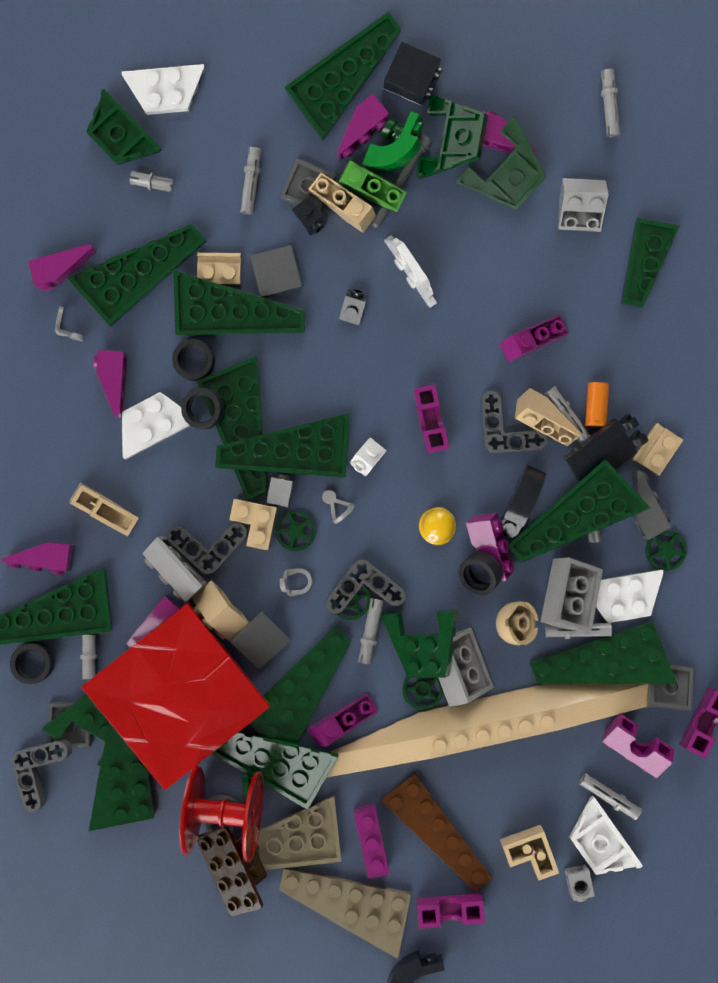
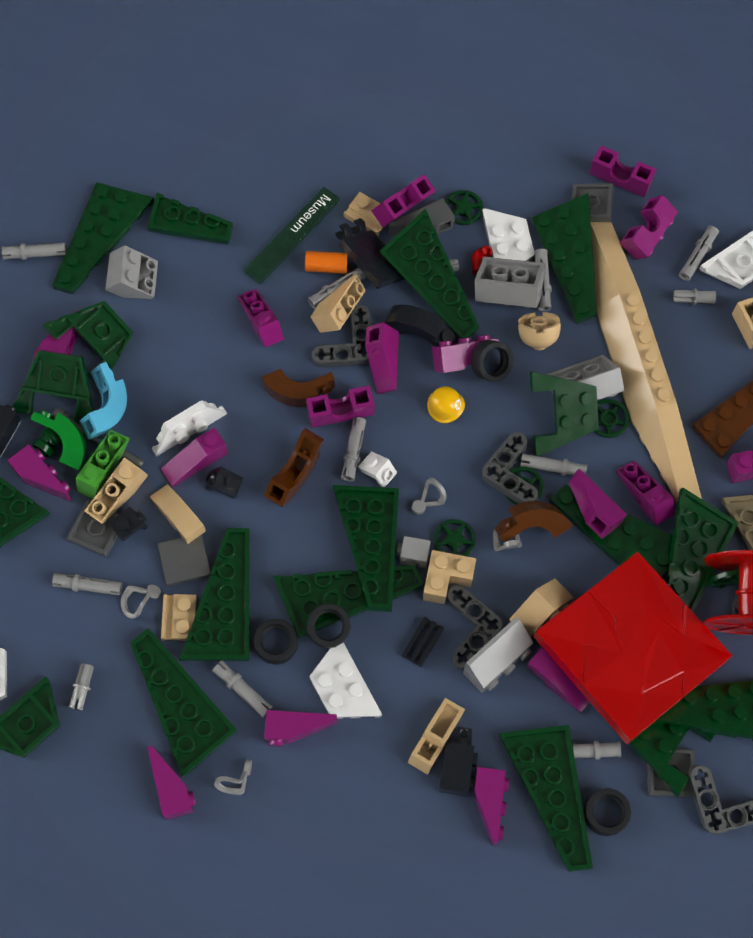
camera: 95 degrees left, 20 degrees down
(76, 528) = (458, 763): none -> black hinge
(148, 330) = (242, 688): none -> light grey pin
(178, 489) = (432, 625): none -> black tile
(242, 242) = (151, 591): none -> light grey piece
(260, 640) = (569, 569): dark grey tile -> none
(312, 607) = (533, 515): none -> reddish brown arch
(320, 262) = (178, 513): none -> tan slope
(320, 670) = (596, 507): none -> magenta slope
(362, 374) = (297, 469): none -> reddish brown arch
(379, 277) = (195, 457): none -> magenta slope
(389, 433) = (352, 454): none -> light grey pin
(433, 193) = (112, 402): none -> medium azure arch
(446, 376) = (295, 393): none -> reddish brown arch
(489, 462) = (383, 356): none -> magenta slope
(559, 787) = (694, 296): none -> light grey axle
(604, 563) = (477, 257): none -> red arm
(631, 369) = (291, 235): none -> clear green tile
(638, 170) = (100, 229): none -> dark green wing
(660, 476) = (403, 200): none -> magenta arch

